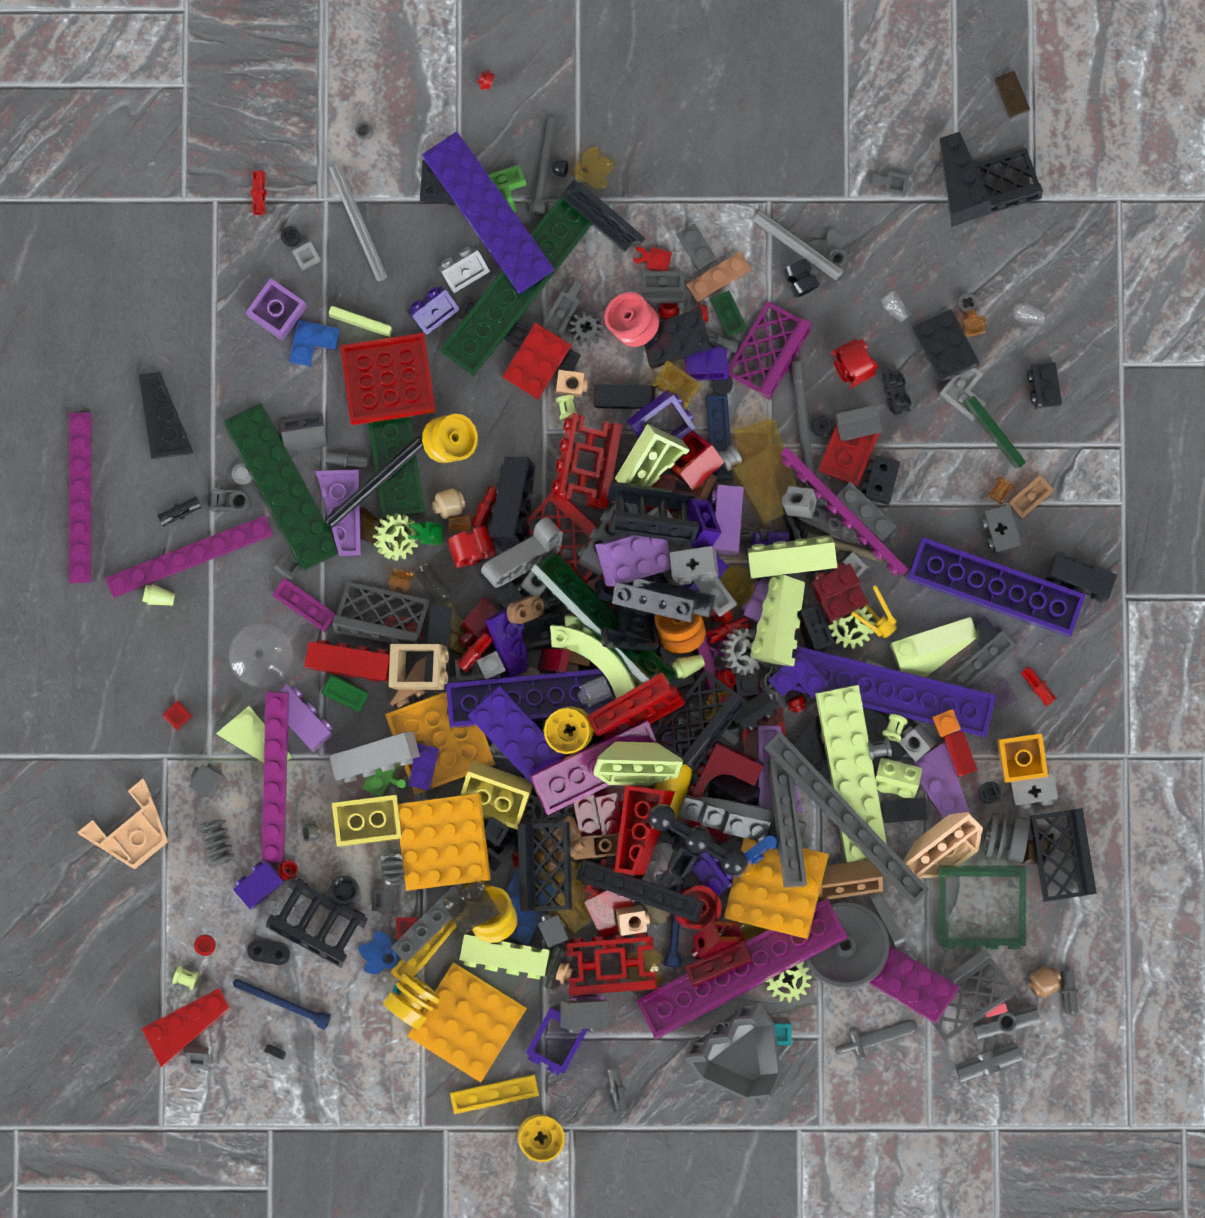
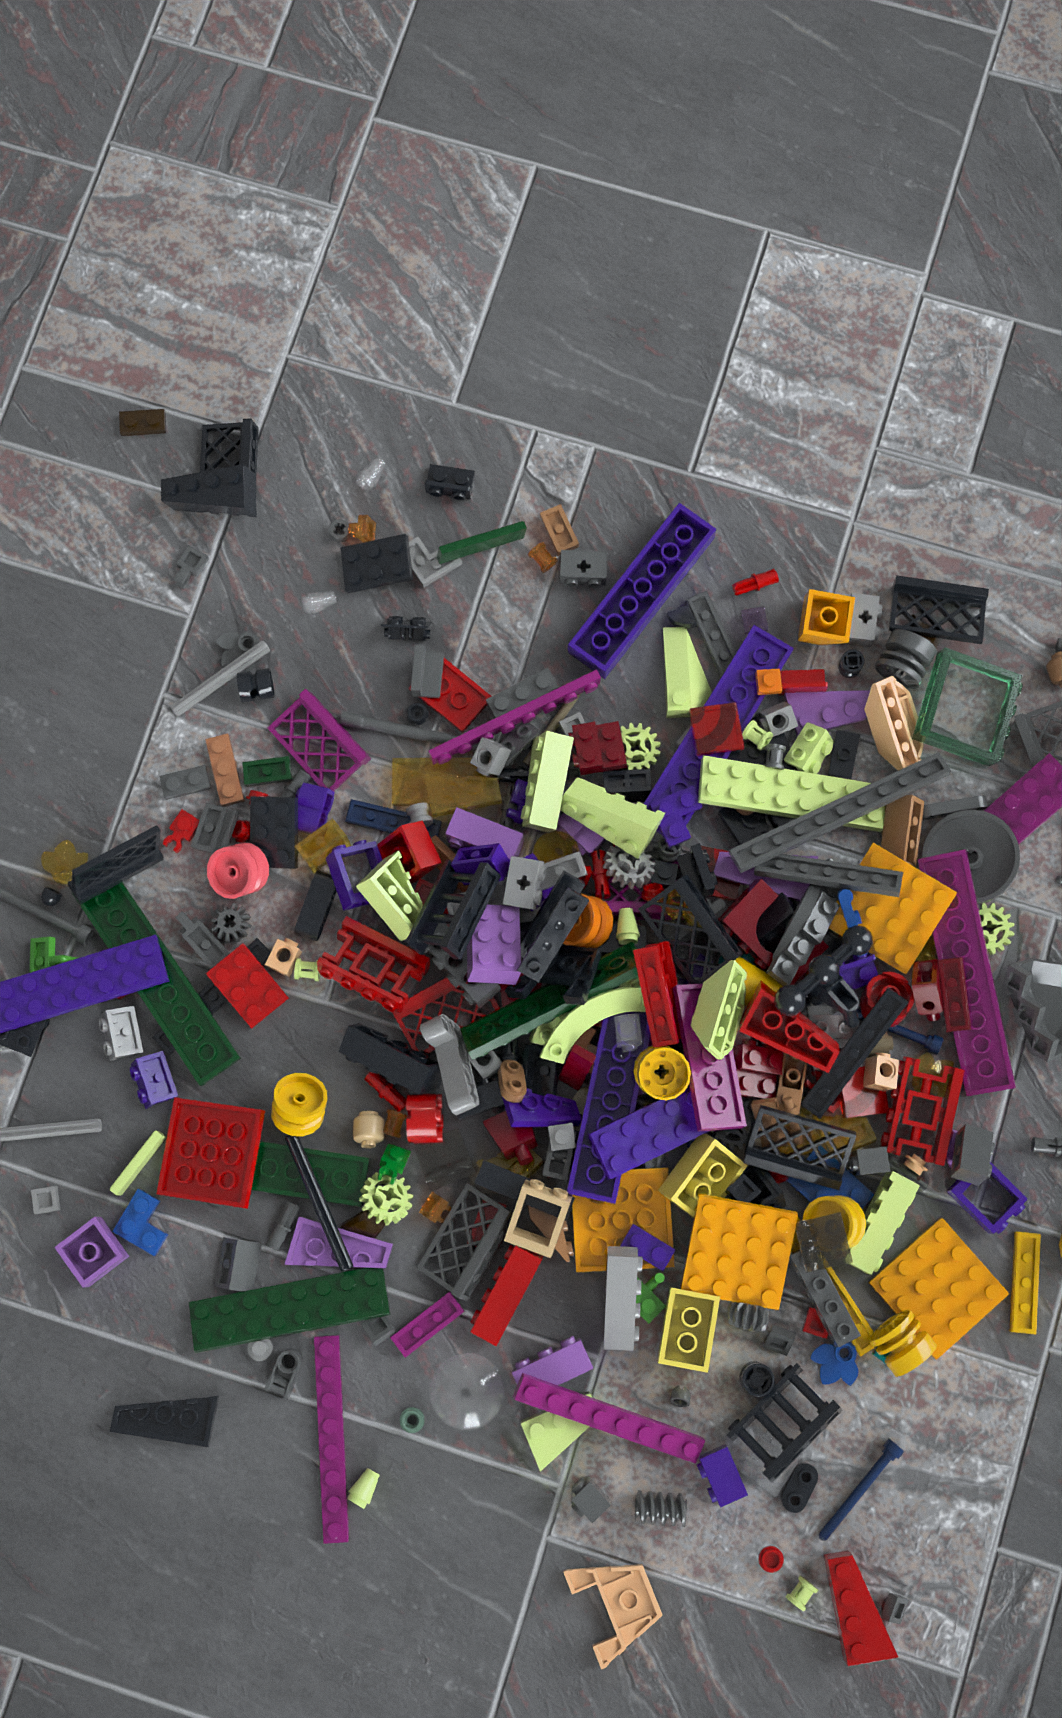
camera: 70 degrees left, 5 degrees down
(80, 498) = (224, 1543): magenta plate -> none
(177, 715) = (504, 1508): red tile -> none
(179, 511) = (277, 1433): black pin -> none
(219, 612) = (406, 1426): none -> sand green plate
(275, 1052) = (913, 1516): black tile -> none
(291, 867) = (715, 1430): red plate -> none
(293, 242) = (25, 1210): black bush -> none
(345, 693) = (538, 1309): green plate -> none
(474, 652) = (541, 1150): red axle -> none
(723, 386) = (341, 802): black tile -> none
(783, 1033) = (1043, 951): teal tile -> none
(796, 703) = (699, 829): red plate -> none
(854, 363) = (362, 658): red brick -> none
(881, 479) = (492, 670): black brick -> none
(884, 625) = (646, 714): yellow plant -> none
(888, 690) = (716, 728): none -> clear red tile
(1081, 577) = (657, 505): black wedge -> none

